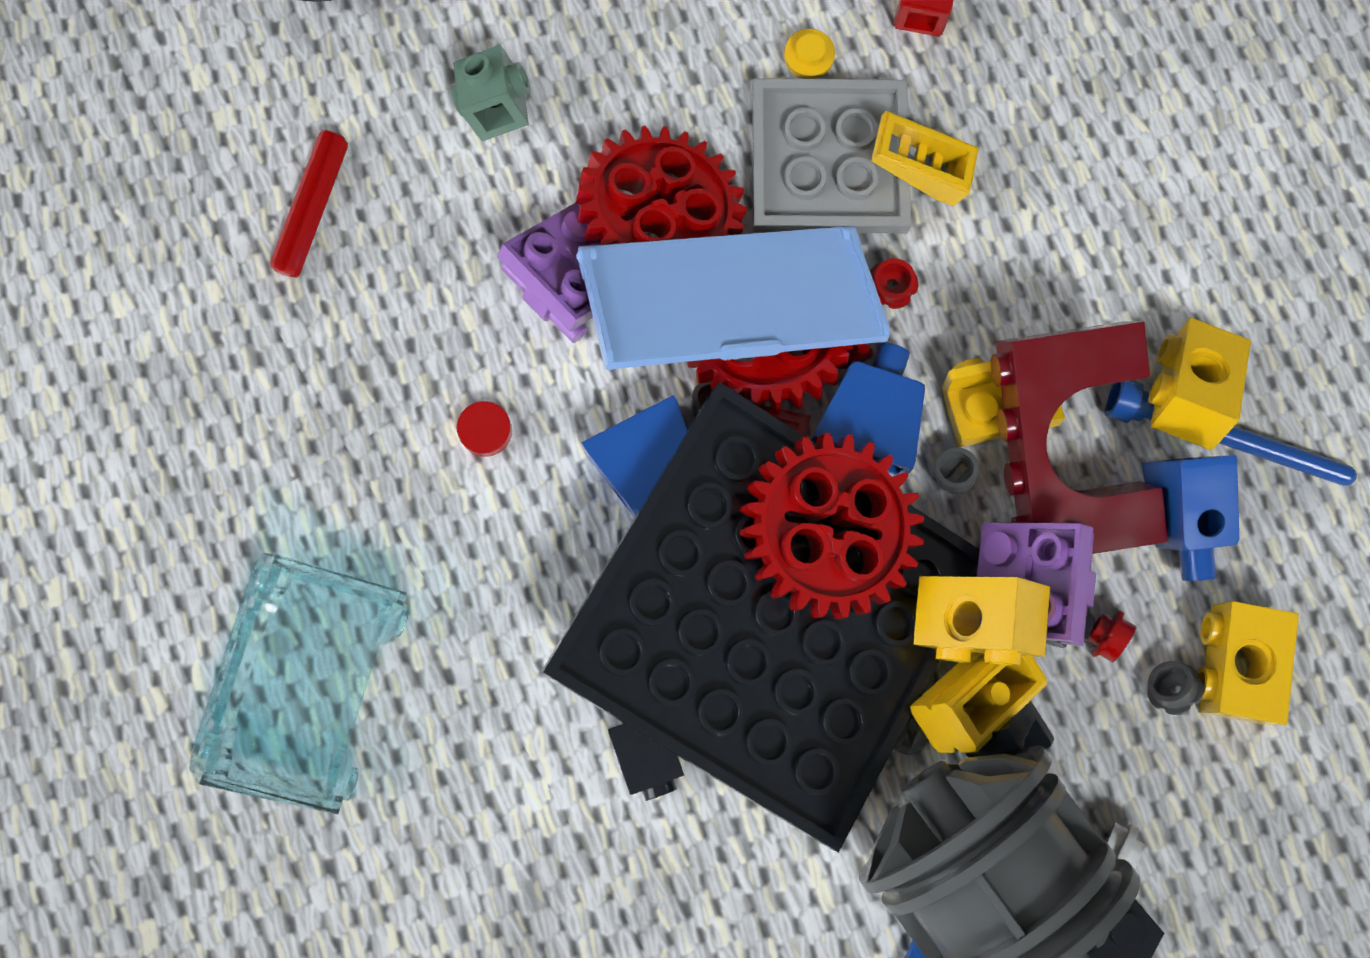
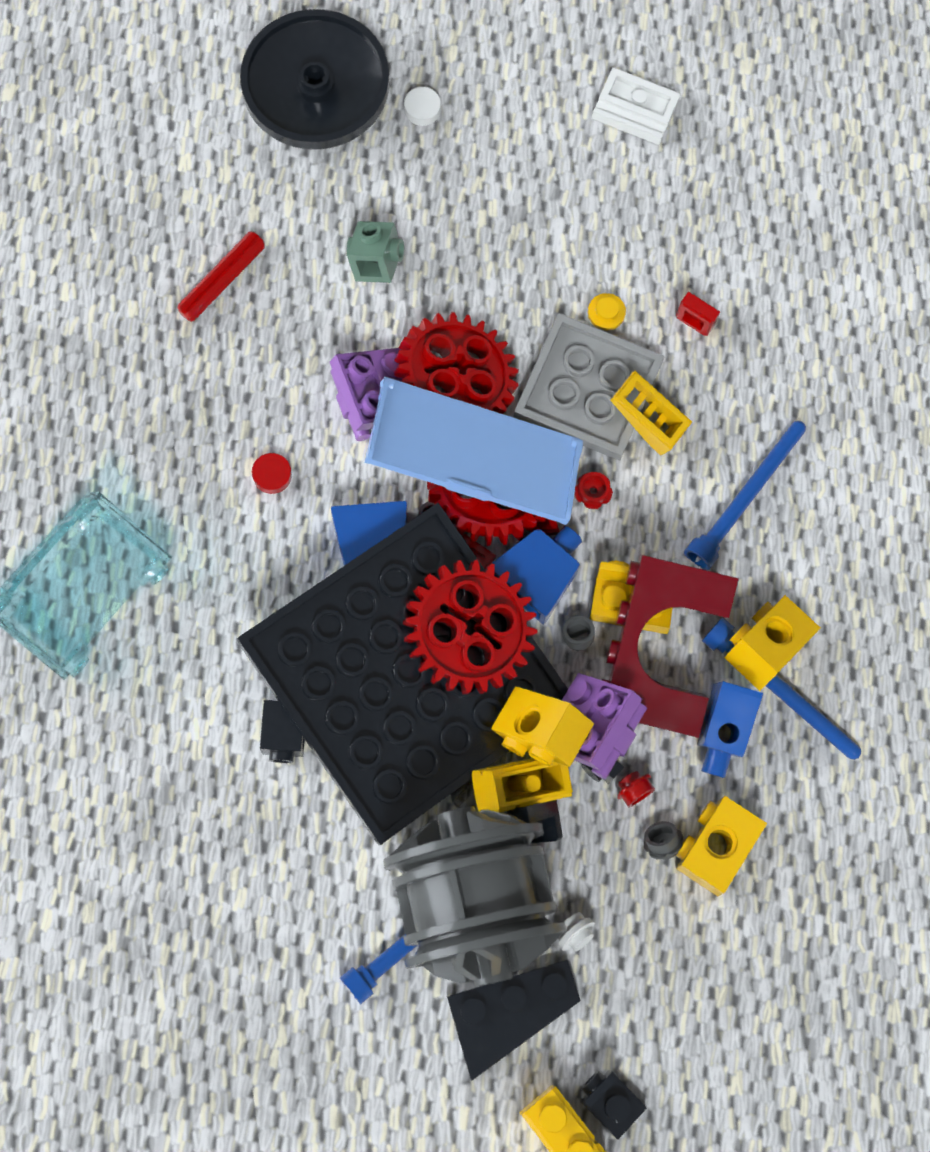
camera: 20 degrees right, 5 degrees down
(1062, 295) = (707, 545): none -> blue piece

